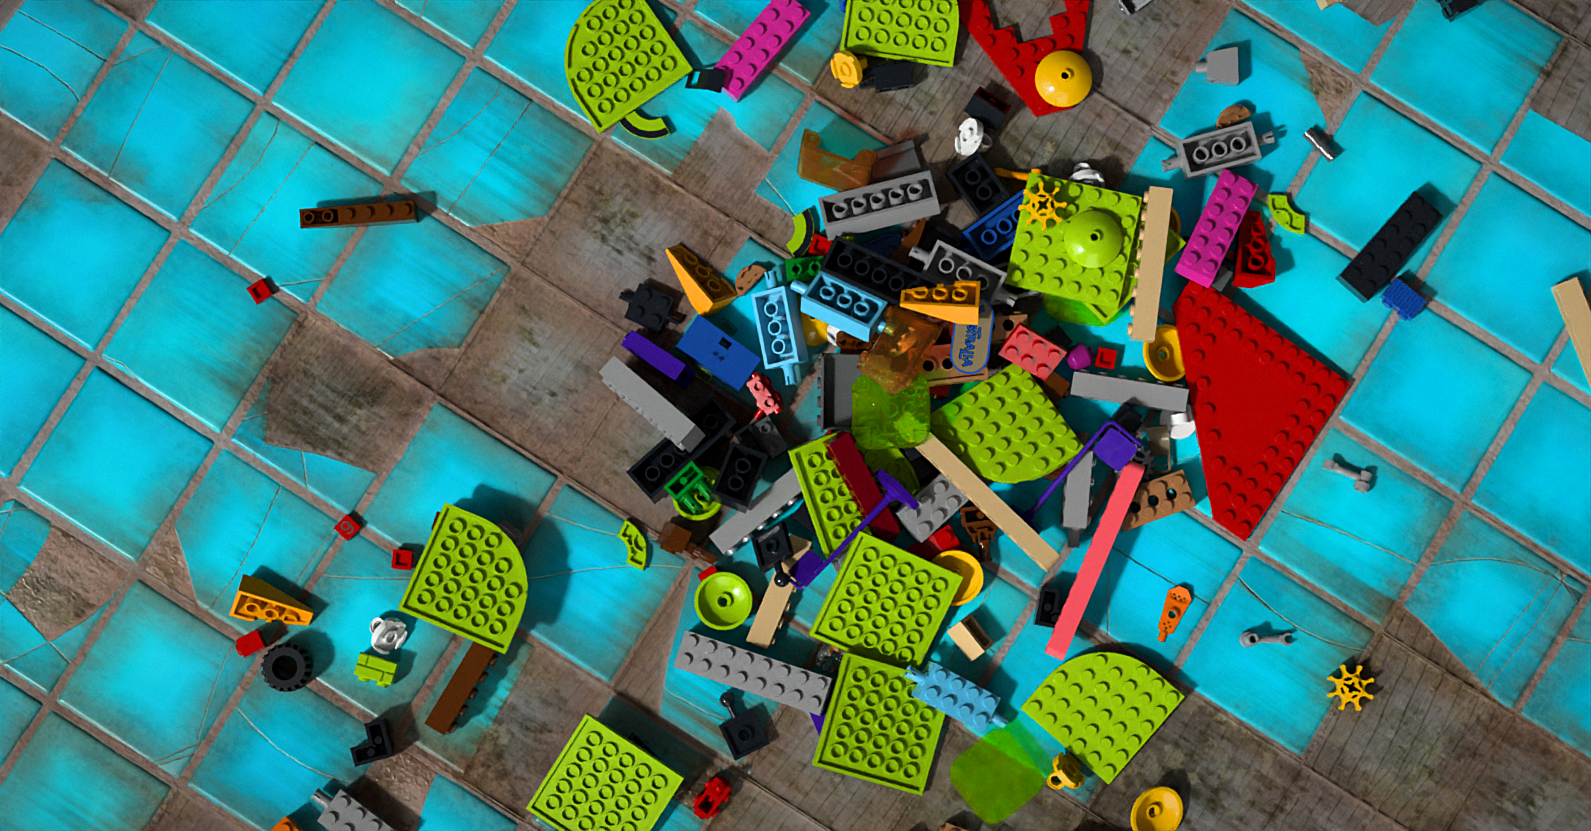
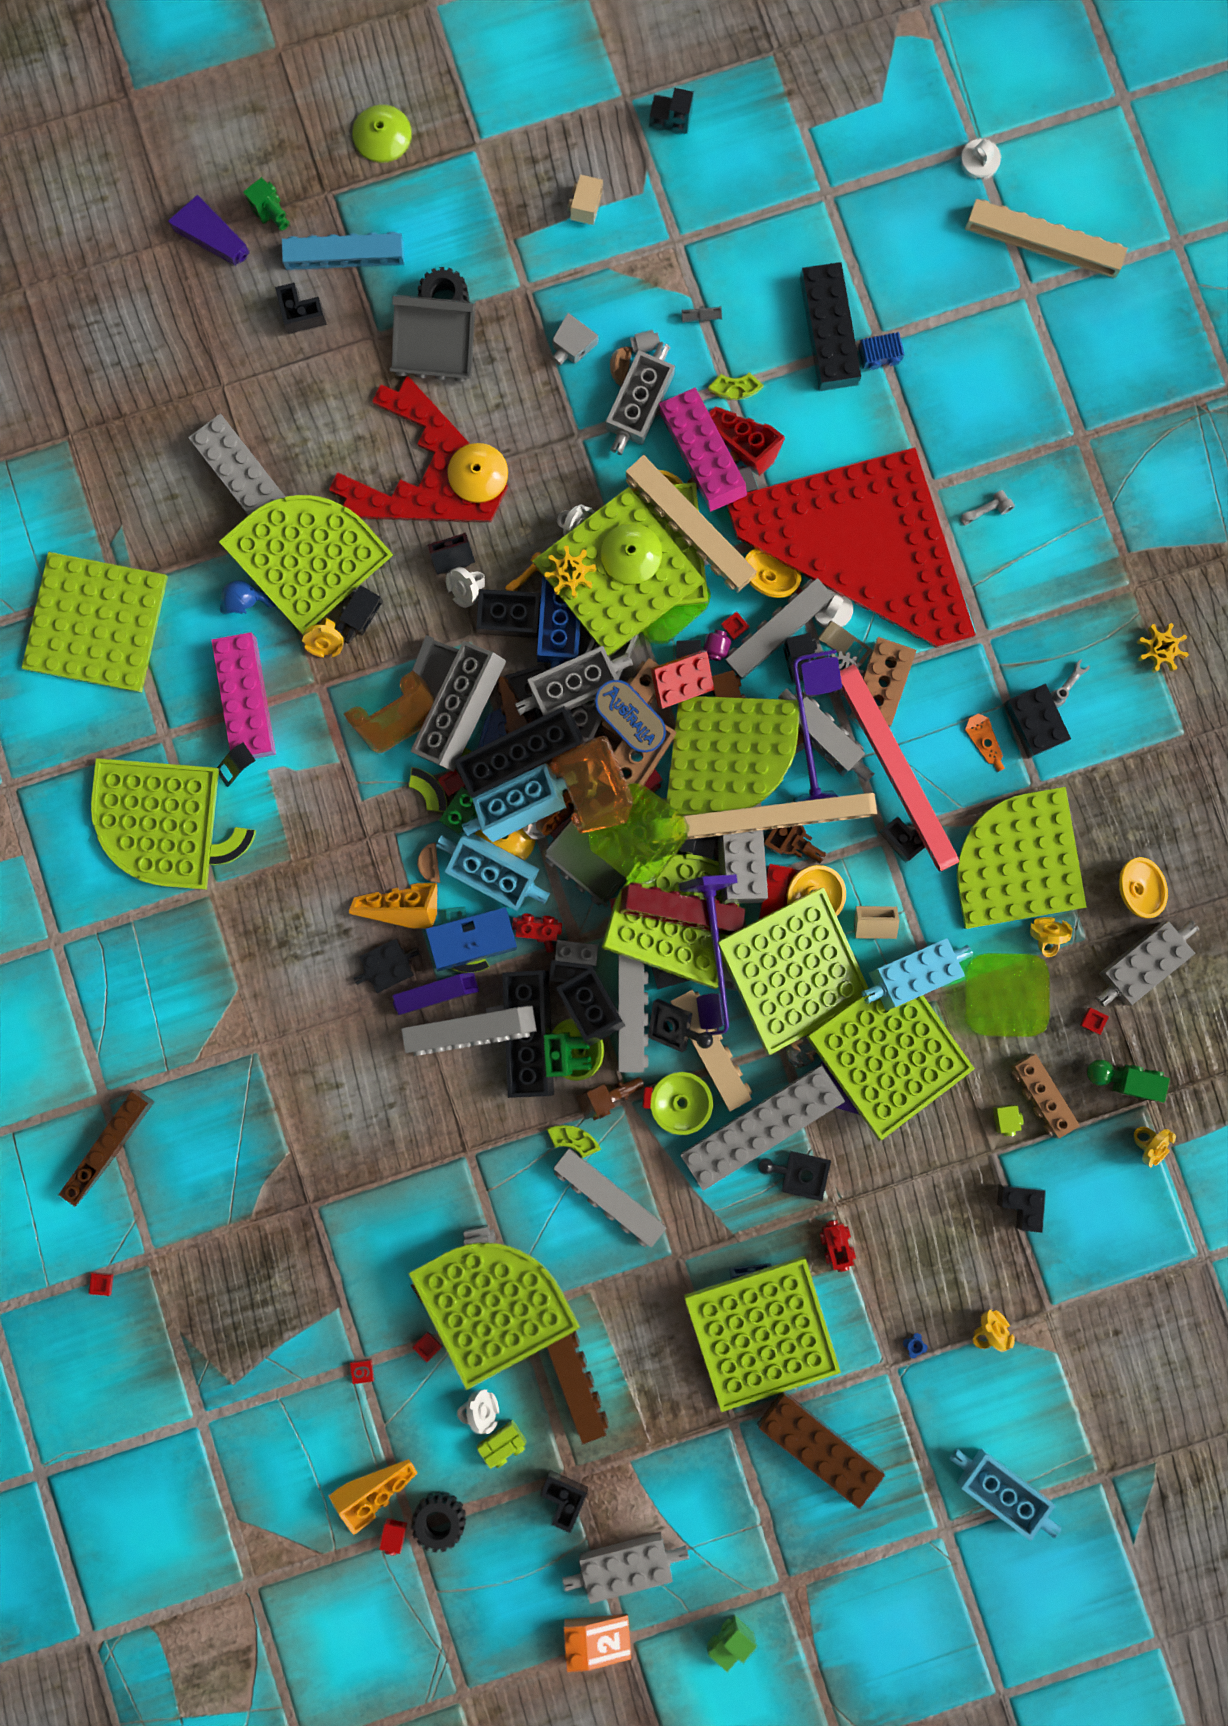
camera: 50 degrees left, 0 degrees up
(613, 604) = (610, 1197): none -> light grey brick
(952, 302) = (592, 708): light orange wedge -> none
(1217, 637) = (1037, 721): none -> black brick
(1263, 120) = (645, 341): none -> light grey brick

